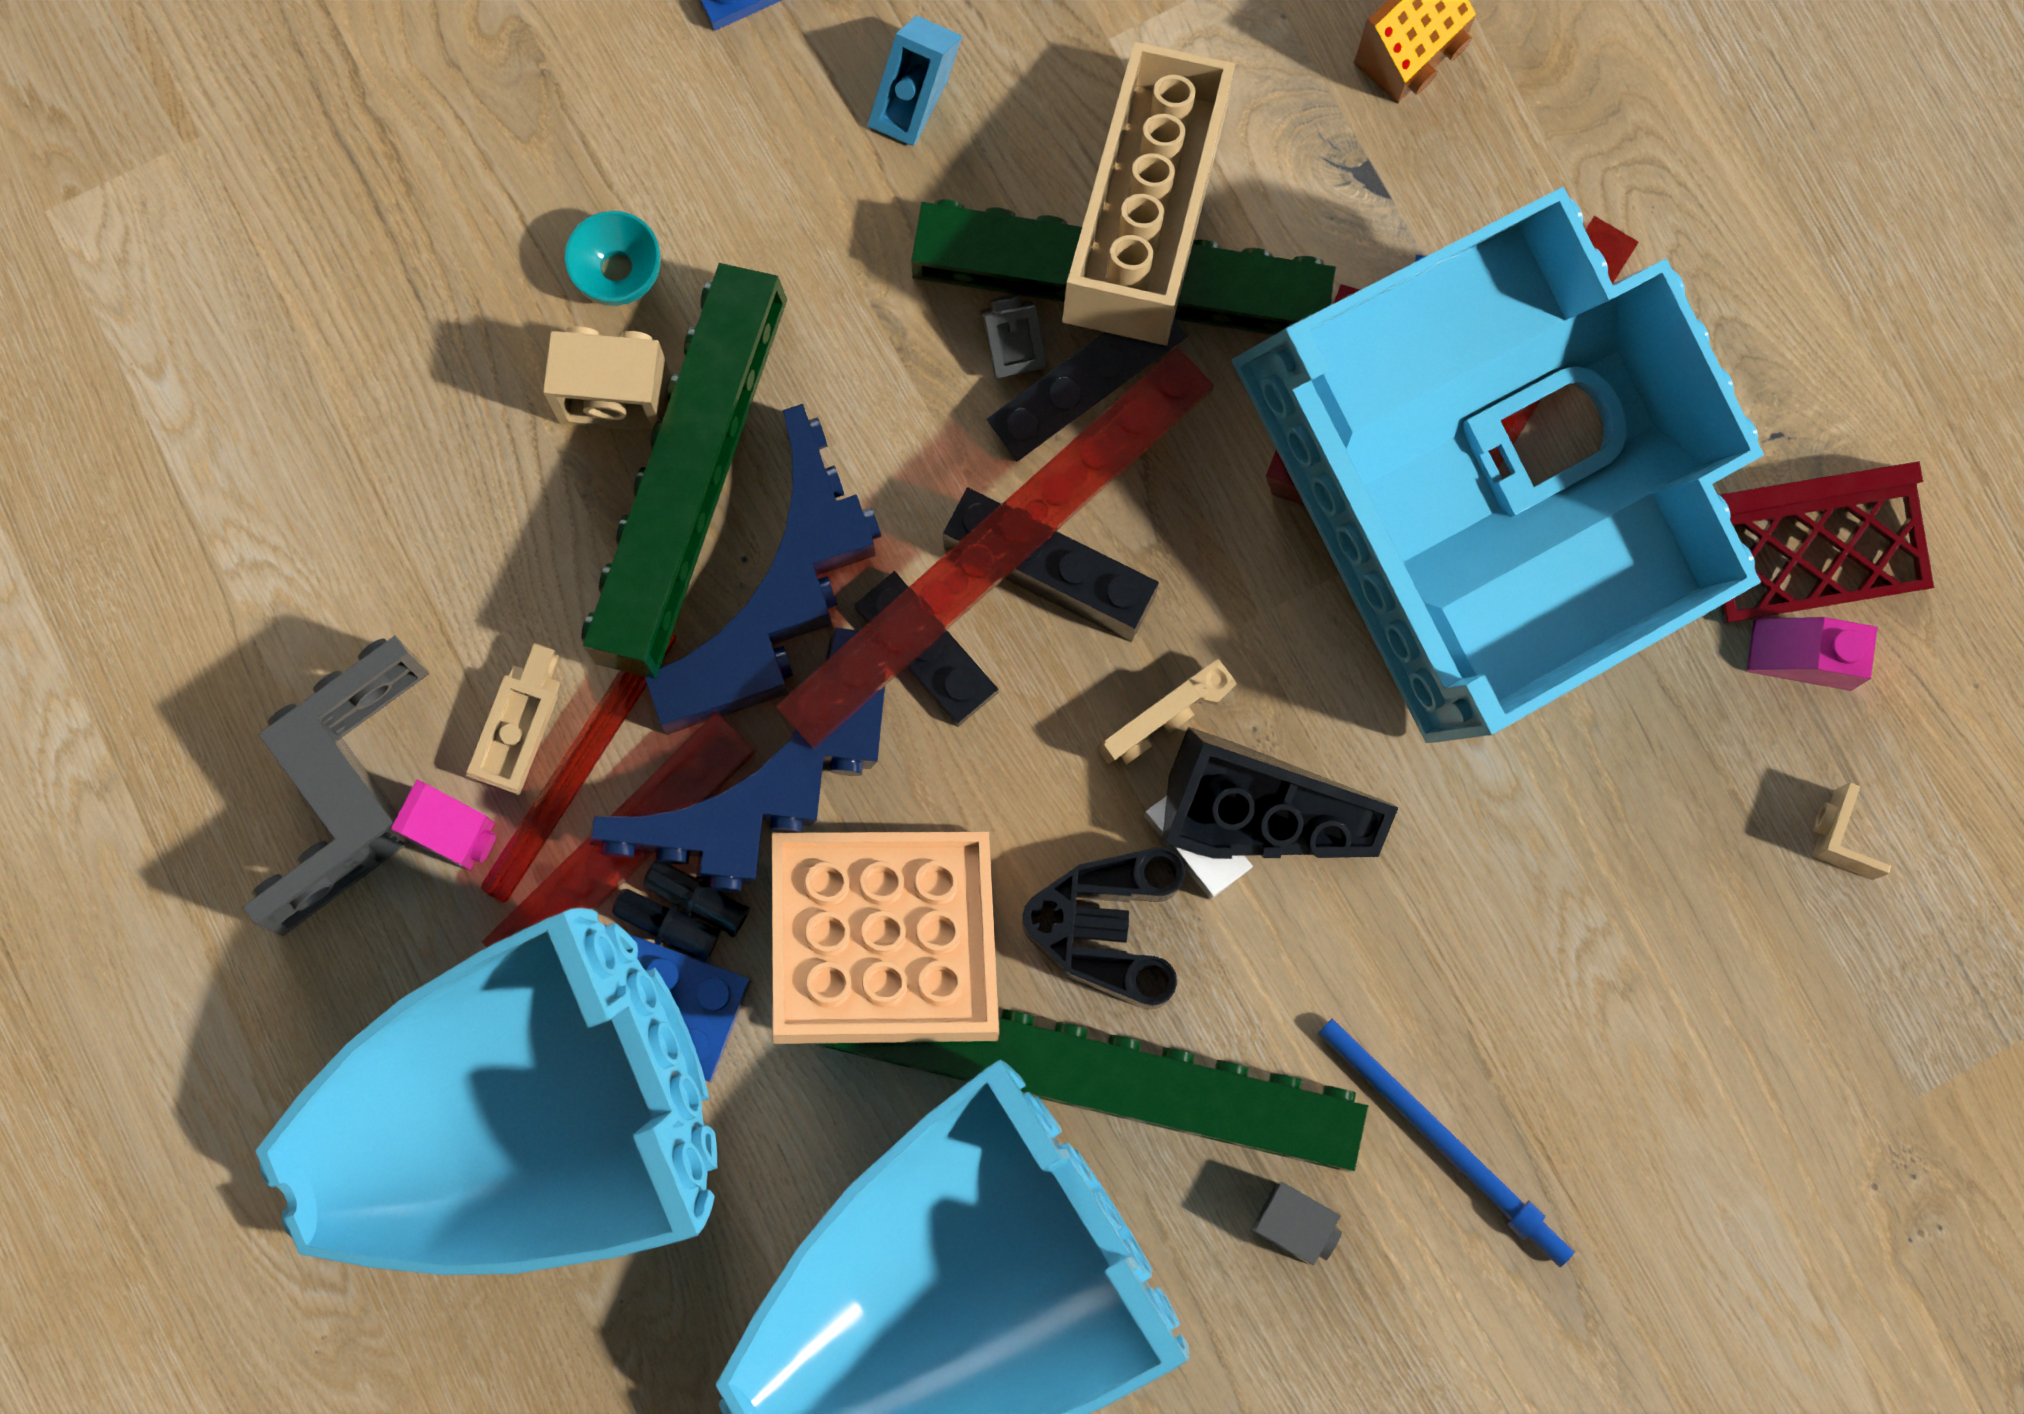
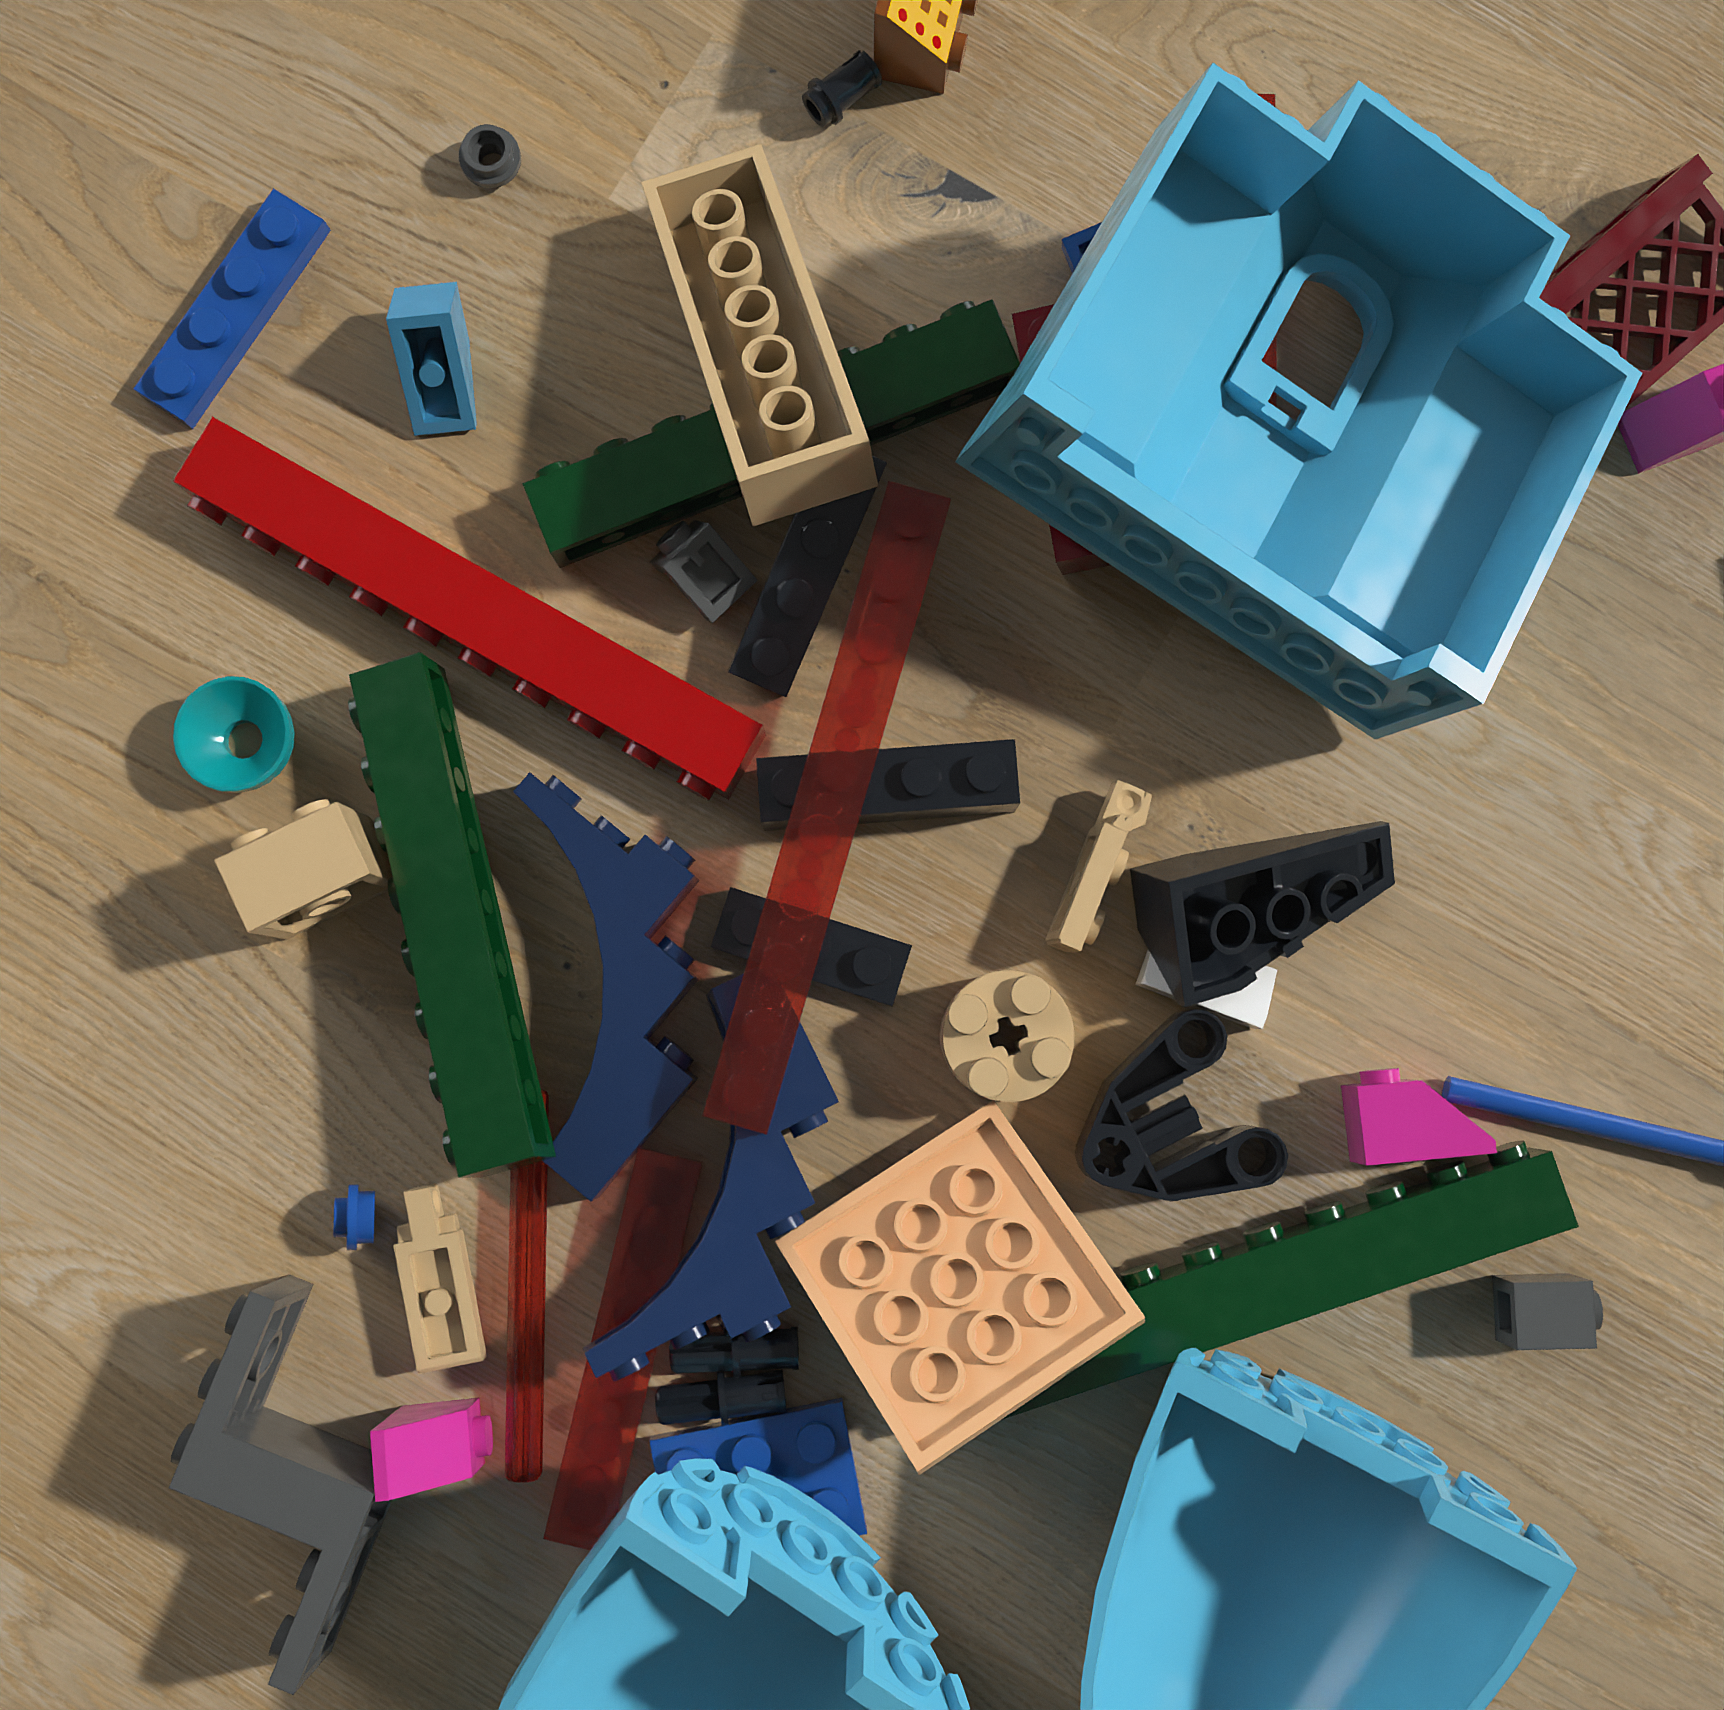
camera: 30 degrees left, 5 degrees up
(489, 641) = (355, 1217): none -> blue plate
(832, 271) = (471, 609): none -> red brick
(1006, 765) = (1039, 1054): none -> tan brick
(1278, 1027) = (1405, 1122): none -> dark pink slope
(1322, 57) = (841, 89): none -> black pin

